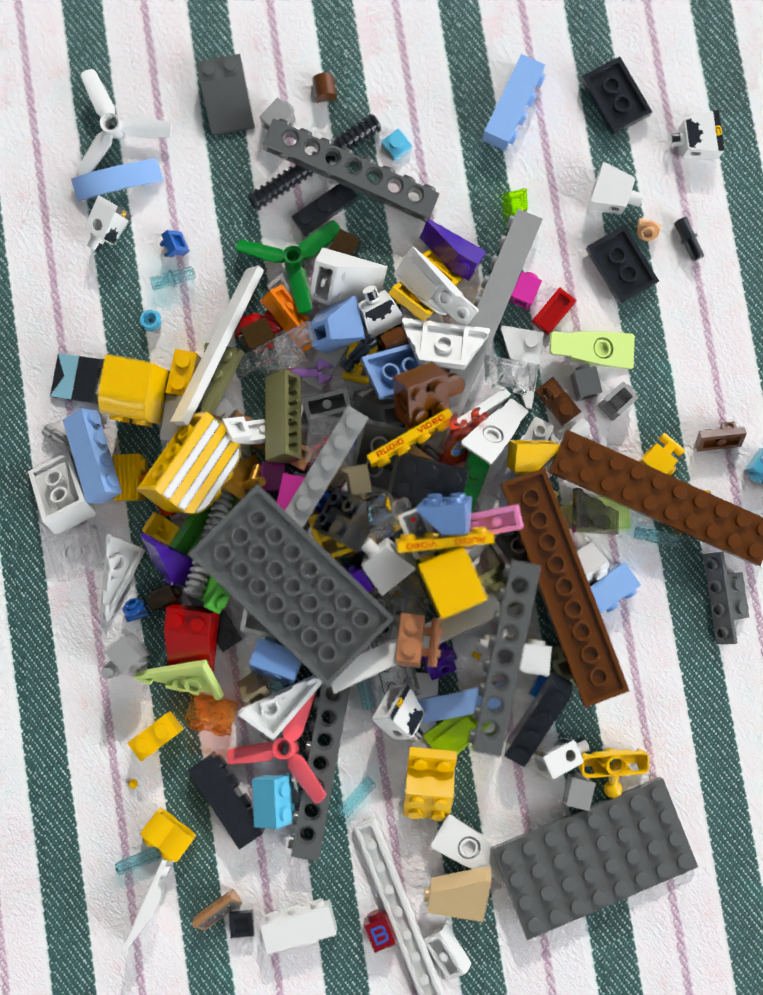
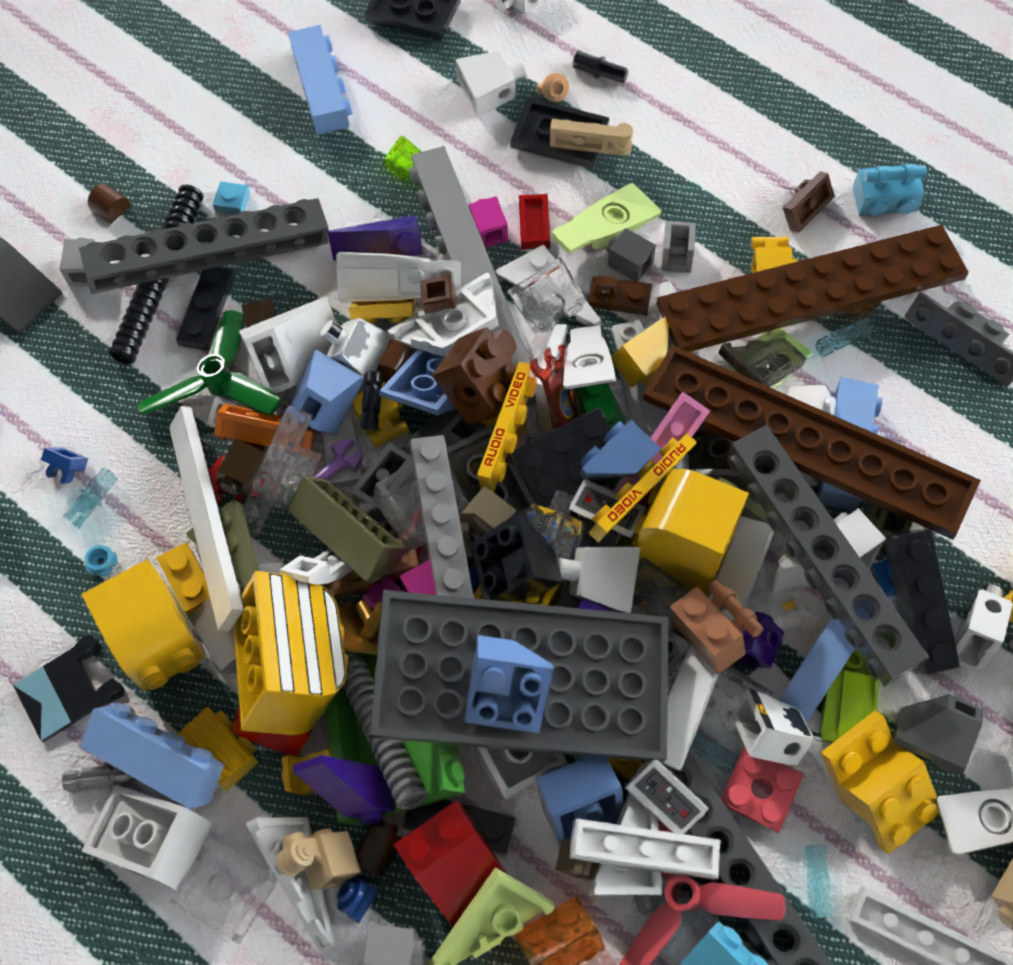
camera: 40 degrees left, 20 degrees down
(132, 581) = (324, 856): none -> tan brick
(275, 588) = (507, 685): none -> medium blue slope
(281, 715) = (645, 849): none -> white tile
(313, 701) = (666, 797): none -> slope
(363, 744) = (780, 779): none -> coral piece
(446, 322) = (438, 294): none -> reddish brown brick
(481, 786) = (940, 730): none -> dark grey slope
(632, 288) = (591, 137): none -> tan plate

